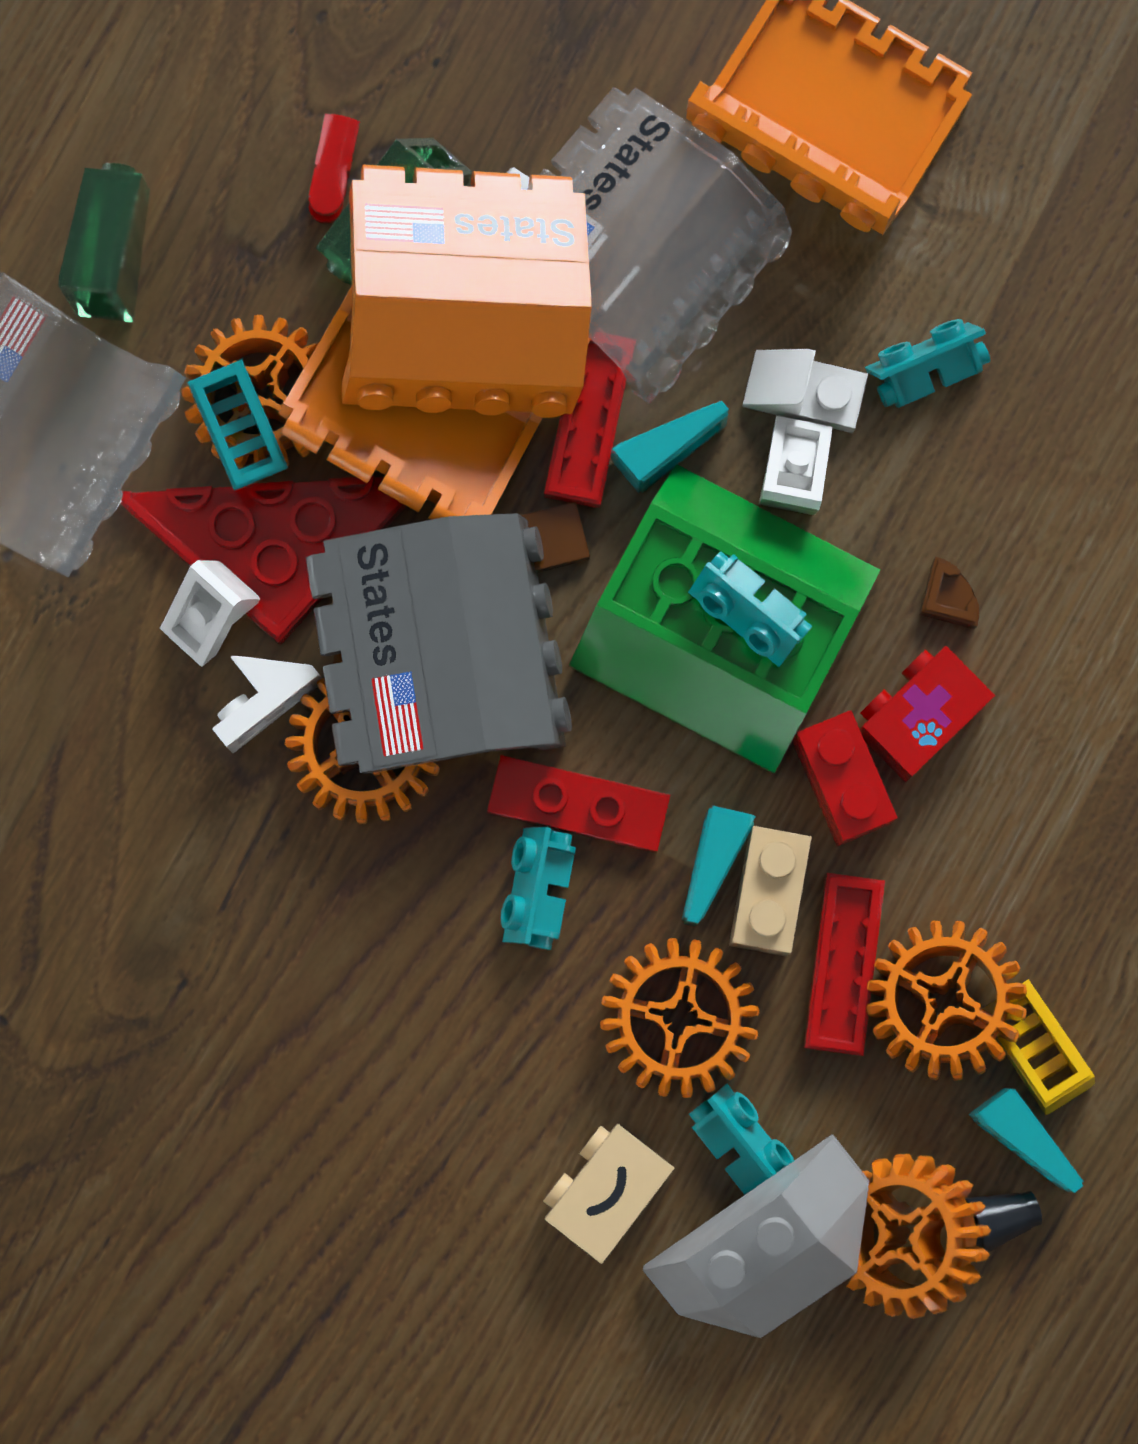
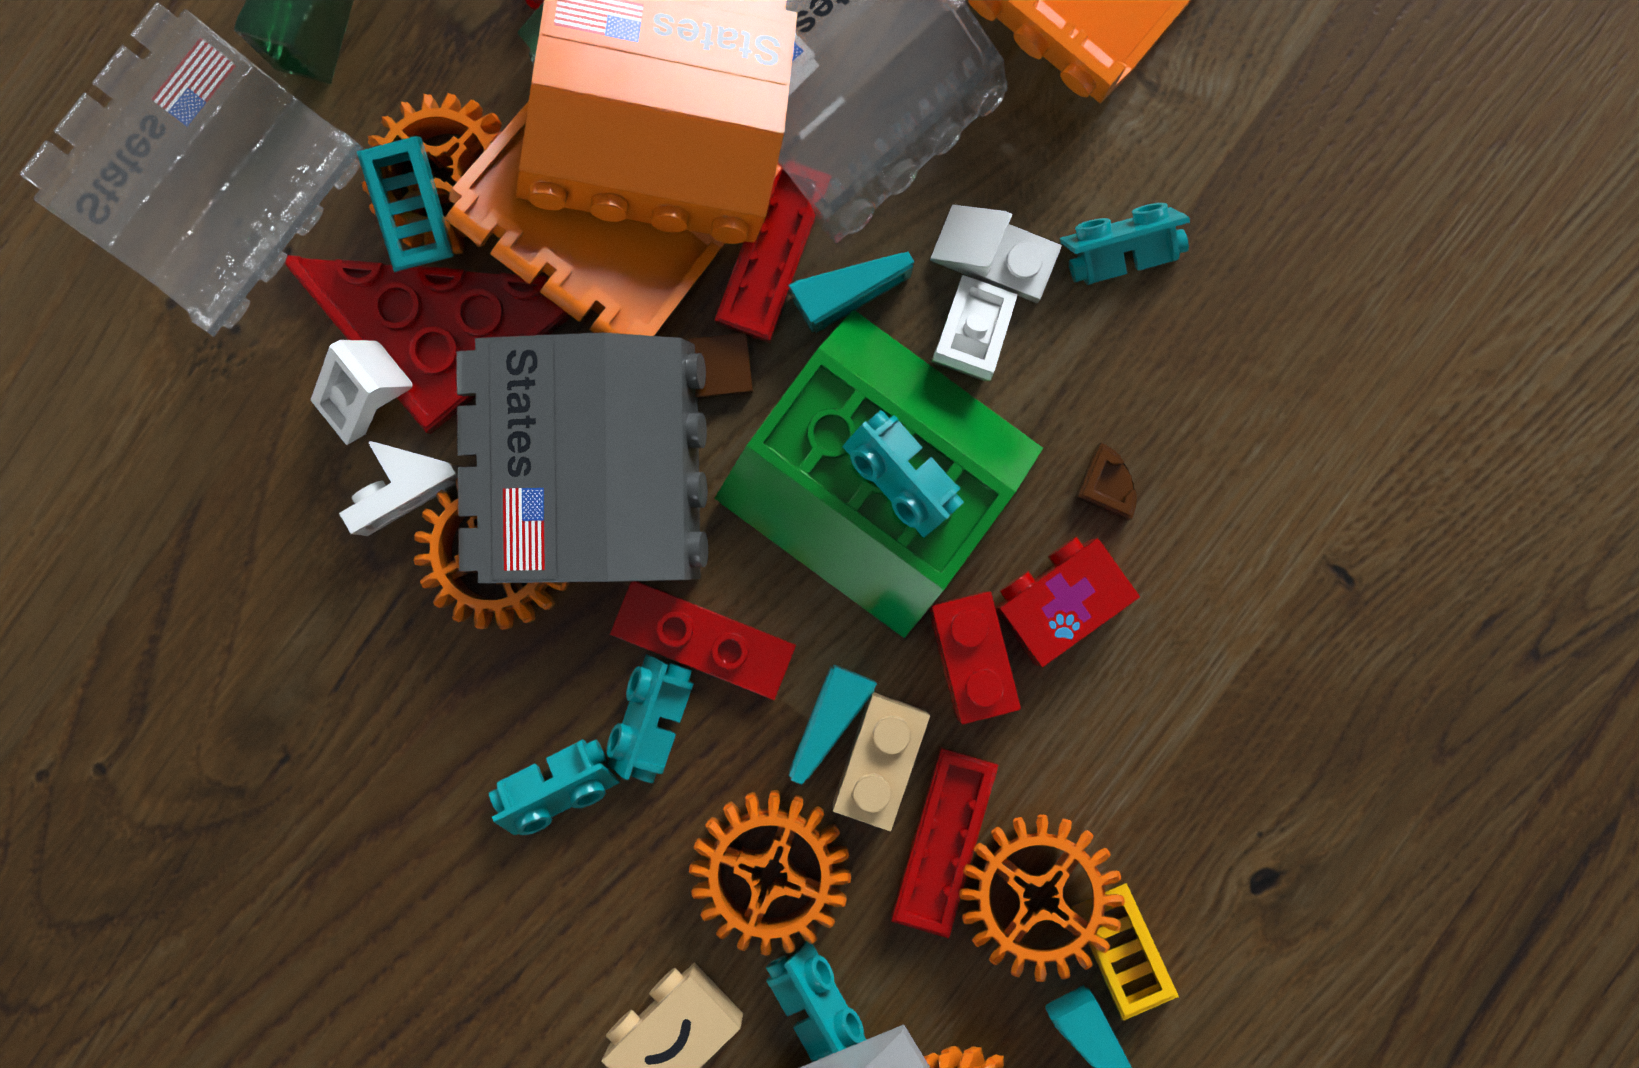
camera: 10 degrees right, 5 degrees up
(434, 988) = (529, 802): none -> teal hinge

